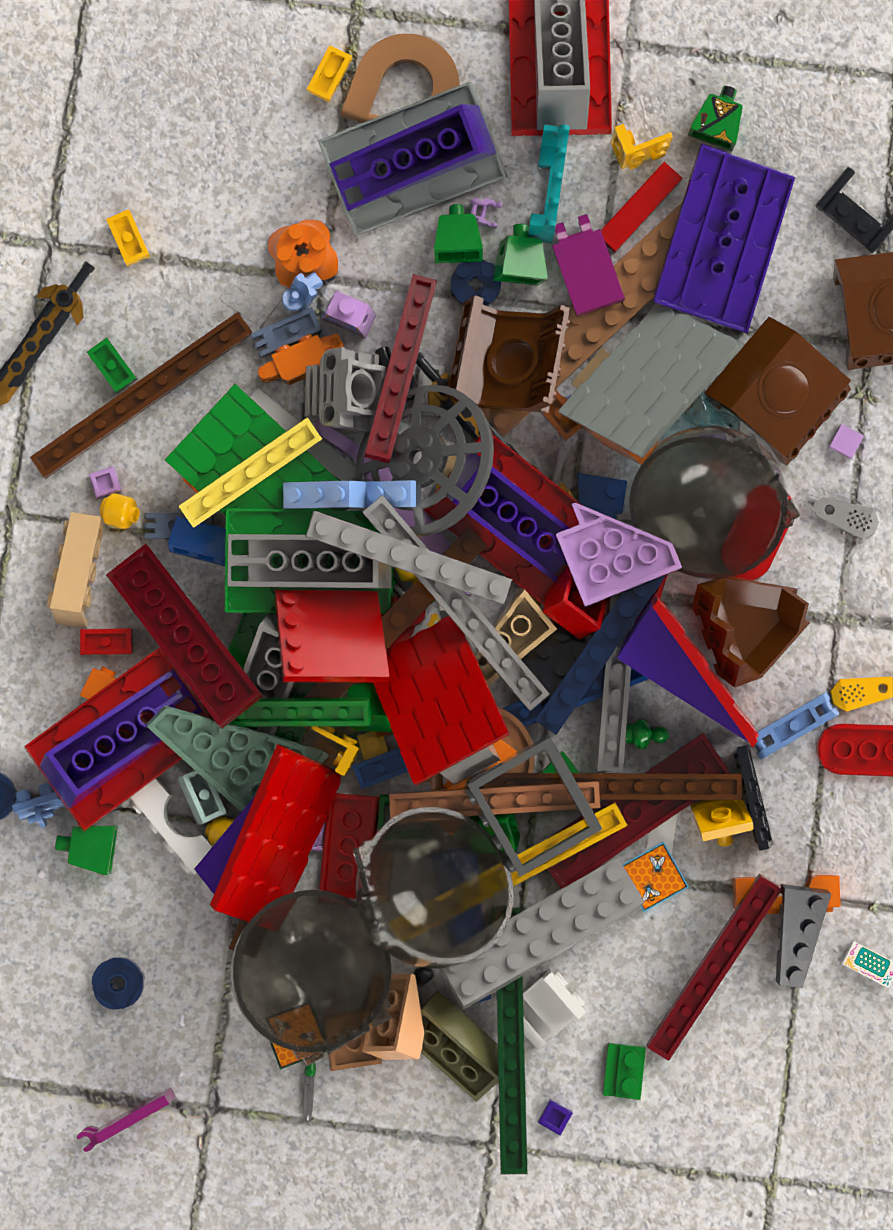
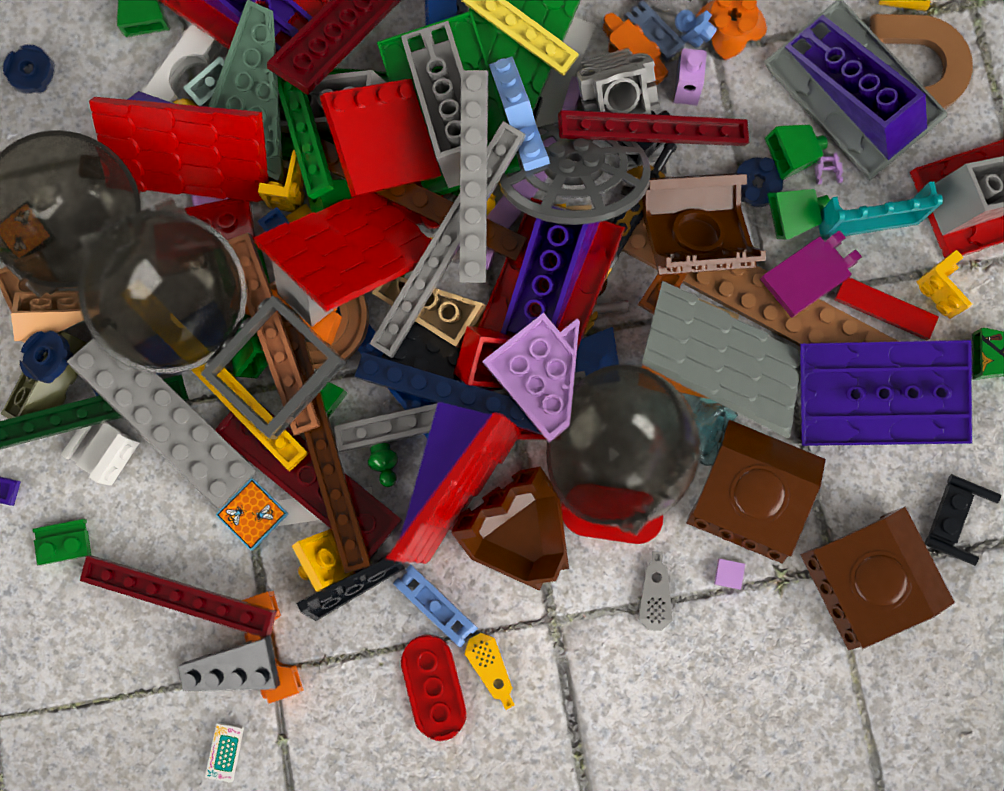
camera: 80 degrees right, 5 degrees down
(452, 1017) = (56, 361): none -> dark blue plate

